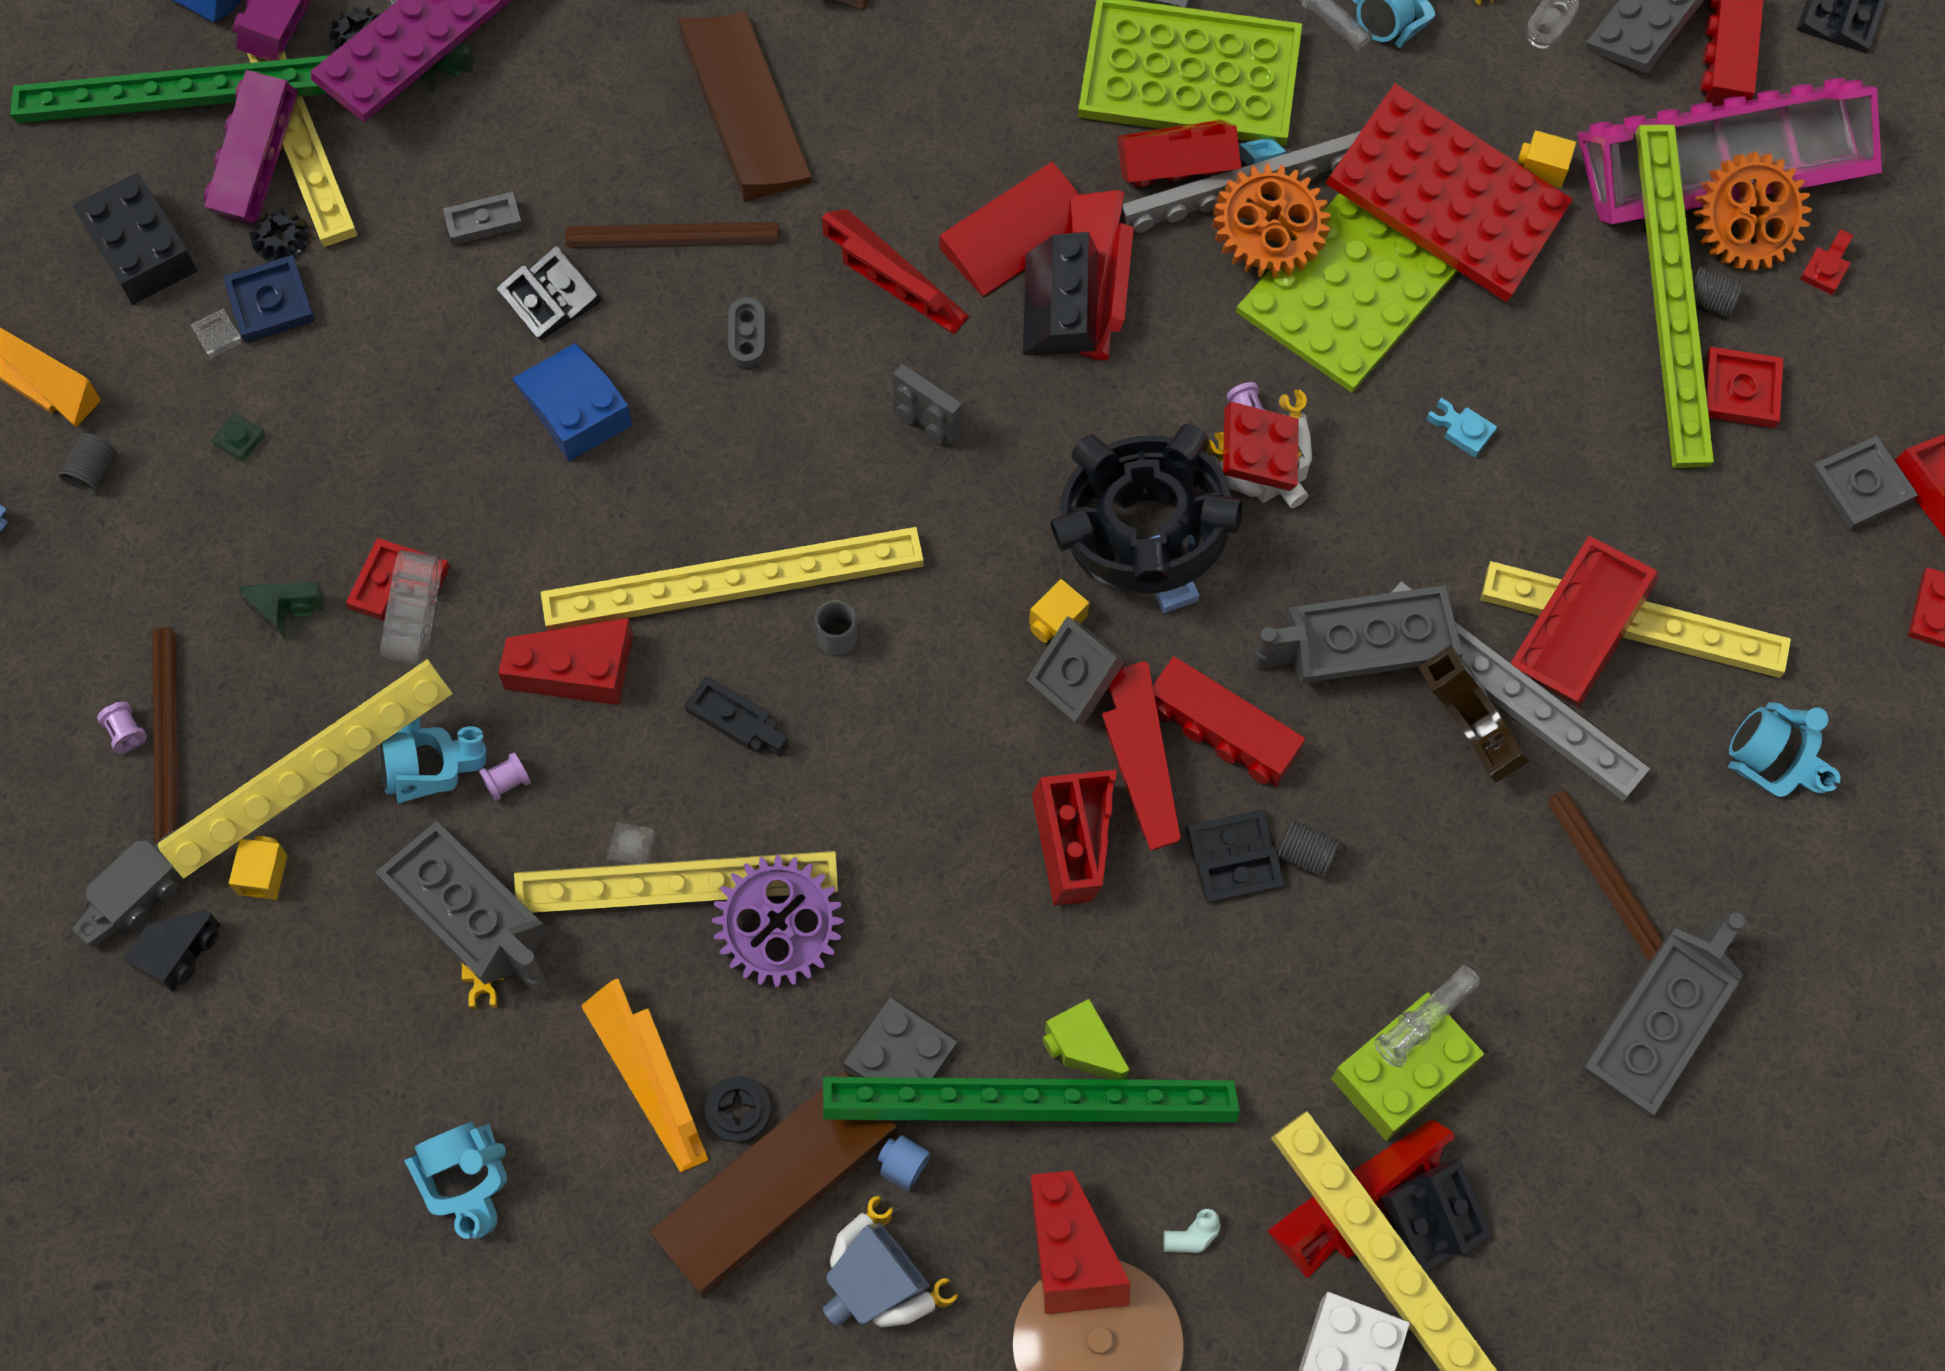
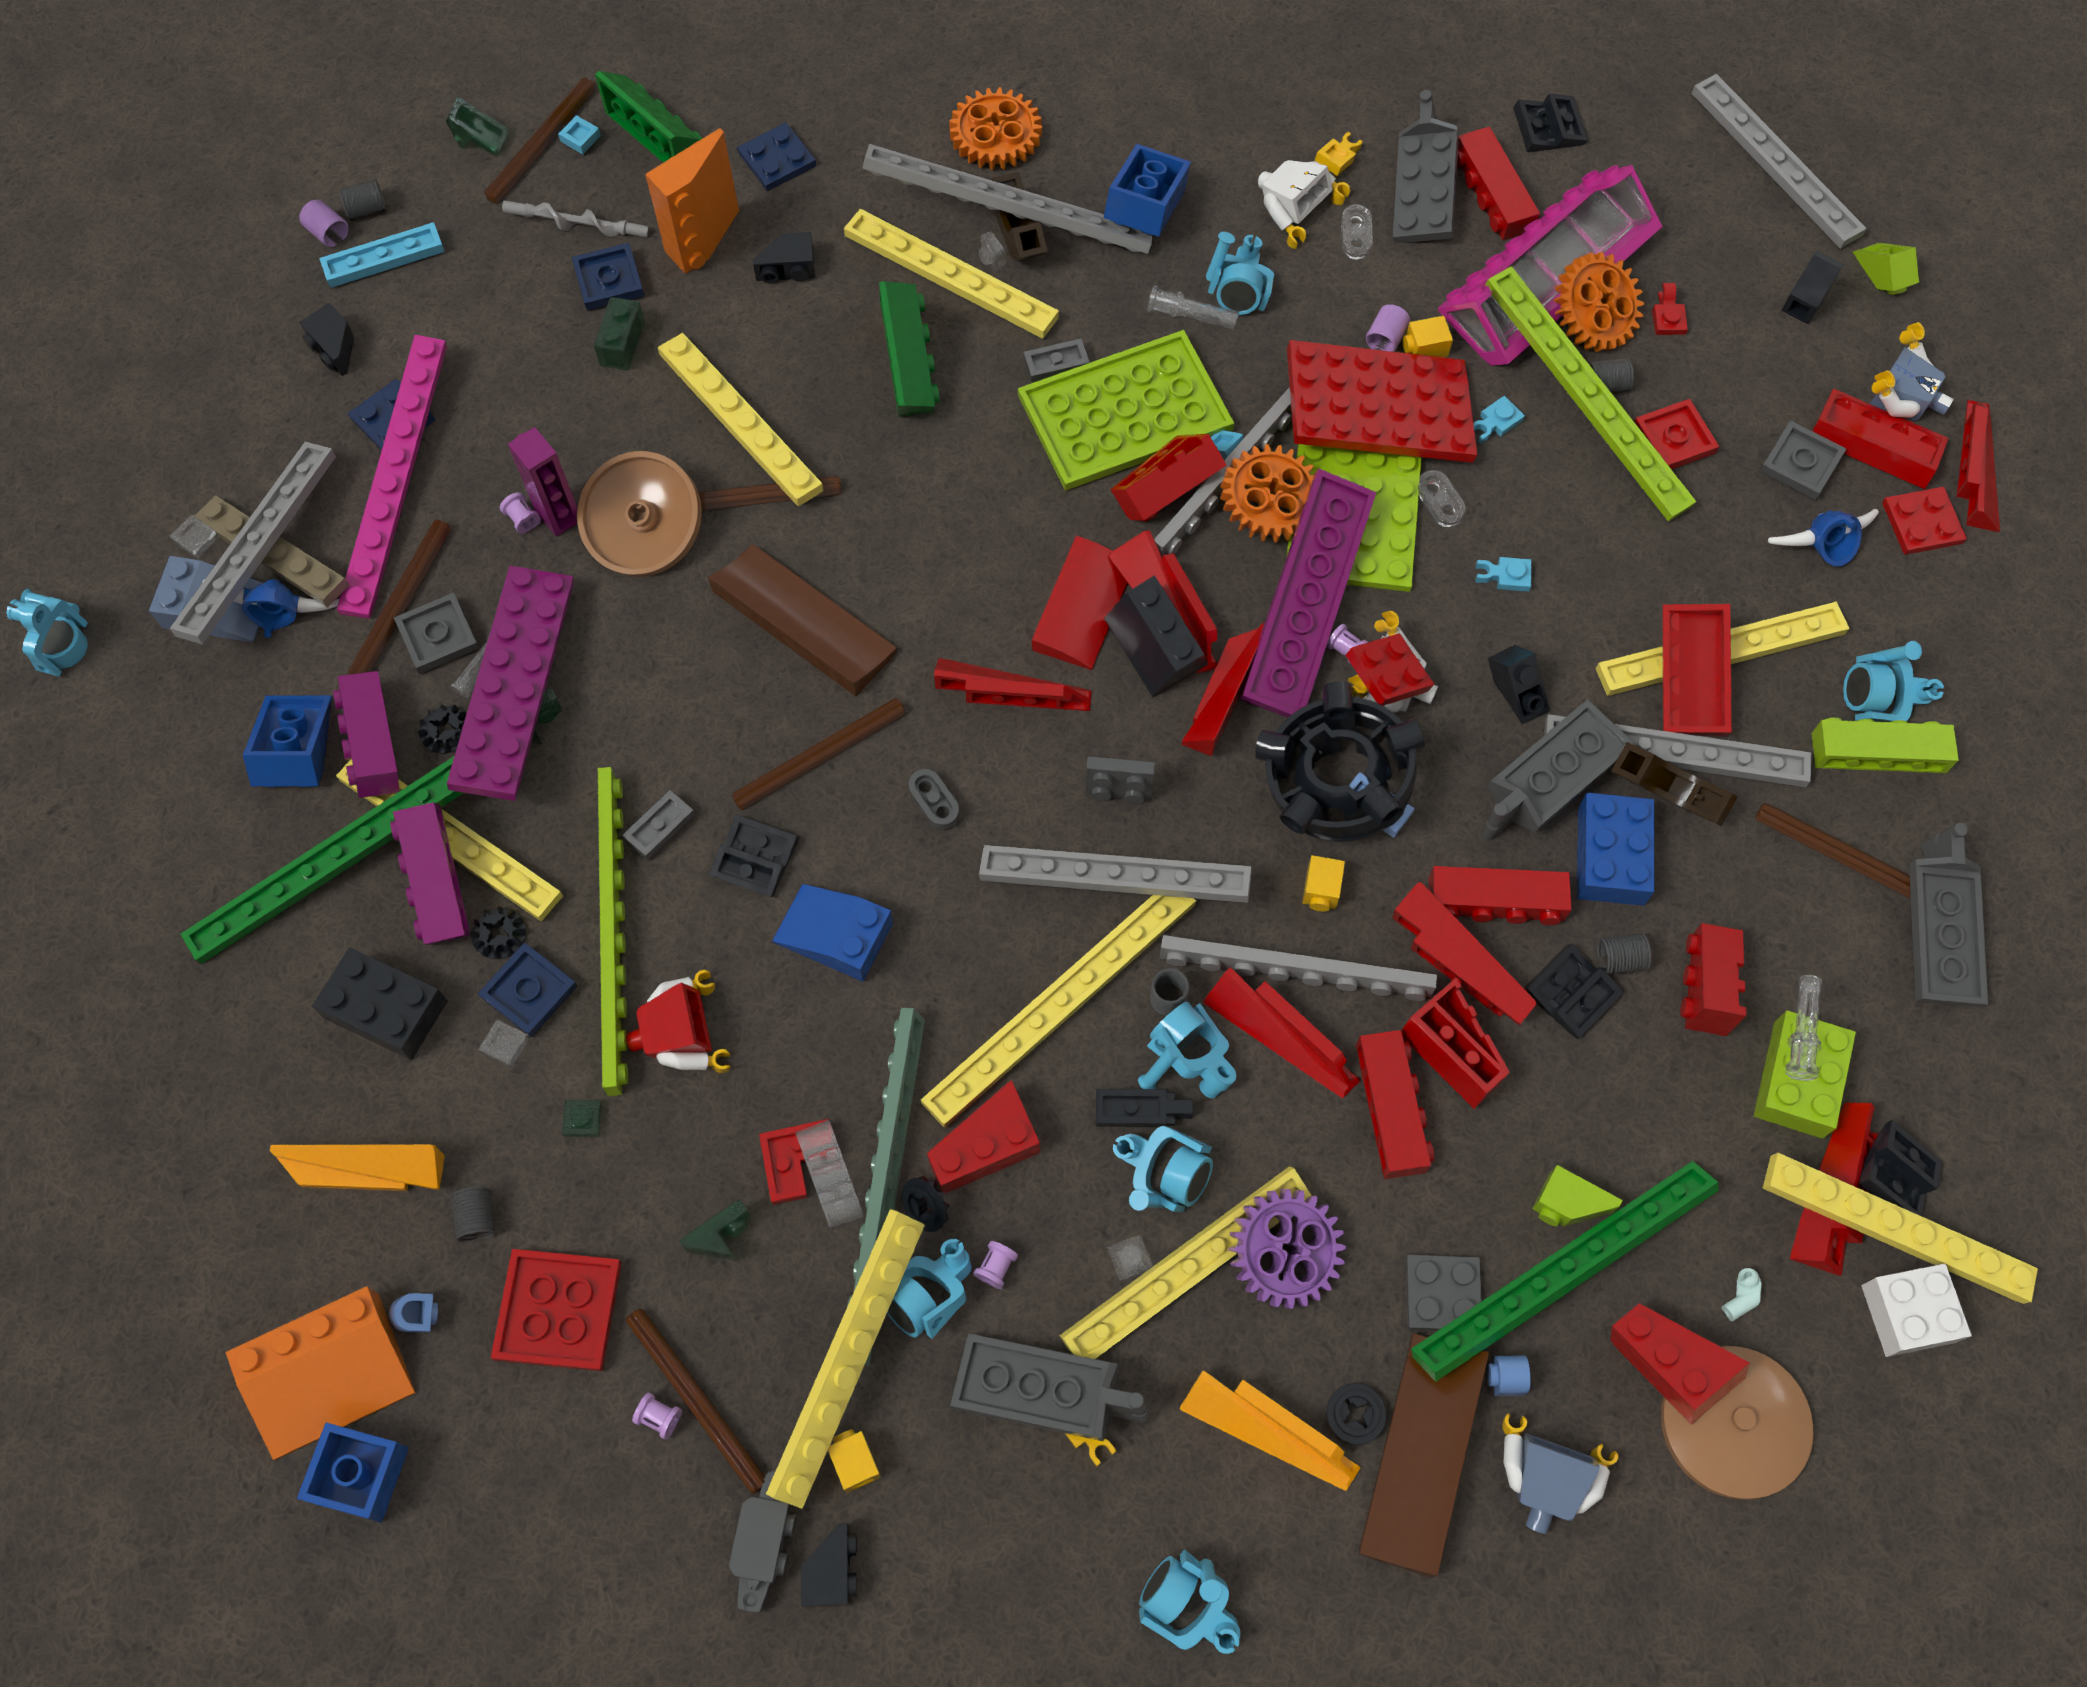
camera: 30 degrees left, 0 degrees up
(102, 587) = (556, 1310): none -> red plate
(370, 292) = (611, 941): none -> lime plate
(370, 401) = (676, 1027): none -> red torso
(477, 684) = (916, 1205): none -> black gear
(494, 609) = (891, 1133): none -> sand green plate
(711, 799) = (1183, 1177): none -> medium azure piece
(815, 667) = (1173, 1035): none -> medium azure piece
(864, 492) = (1116, 873): none -> light grey plate
(920, 724) = (1282, 1029): none -> red wedge
(976, 853) = (1393, 1104): none -> red brick
(986, 685) = (1310, 969): none -> light grey plate
(1075, 670) = (1371, 919): dark grey plate -> none
(1096, 384) = (1222, 692): none -> red wedge
(1239, 334) = (1308, 594): none -> magenta plate
(1373, 745) = (1615, 849): none -> blue brick
(1380, 923) = (1713, 980): none -> red wedge
(1395, 537) = (1520, 682): none -> black slope
(1448, 321) = (1443, 499): none -> clear plate
(1513, 126) = (1391, 323): none -> lavender piece
(1568, 273) = (1498, 417): none -> medium azure plate
(1735, 806) = (1884, 745): none -> lime brick
(1835, 573) = (1832, 534): none -> blue helmet

